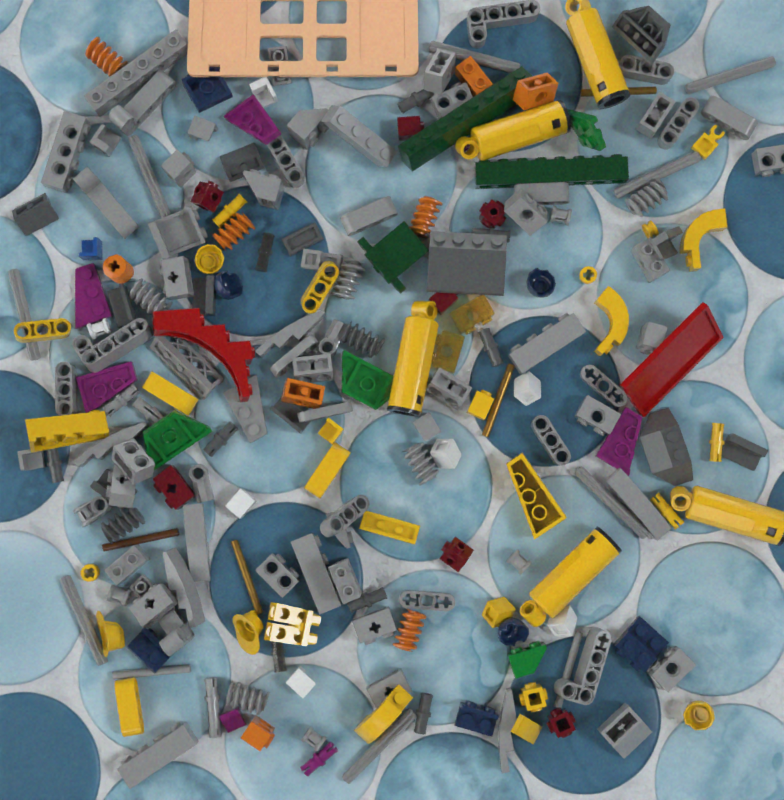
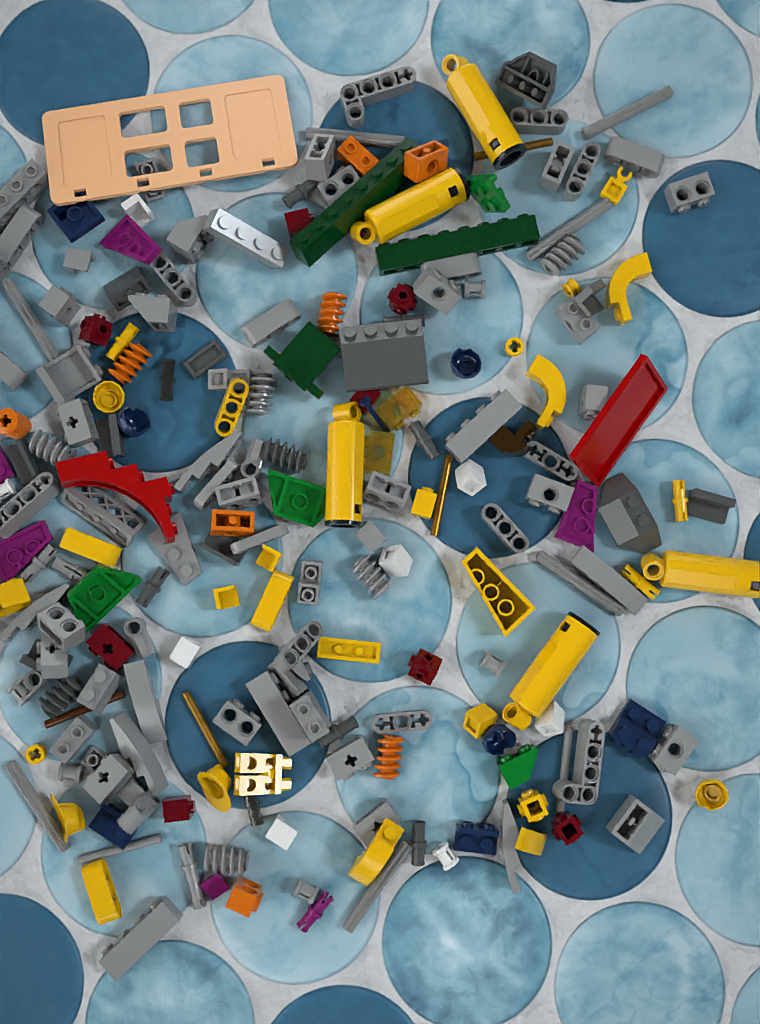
camera: 15 degrees left, 0 degrees up
(158, 523) = (99, 689): none -> light grey brick
(211, 644) = (178, 808): none -> dark red brick
(286, 460) = (226, 597): none -> yellow panel
(330, 546) = (290, 681): none -> light grey slope
(364, 459) = (310, 582): none -> light grey slope
(443, 303) = (366, 402): none -> dark blue piece
(446, 729) = (445, 856): none -> white bush
(571, 365) = (511, 444): none -> dark brown brick

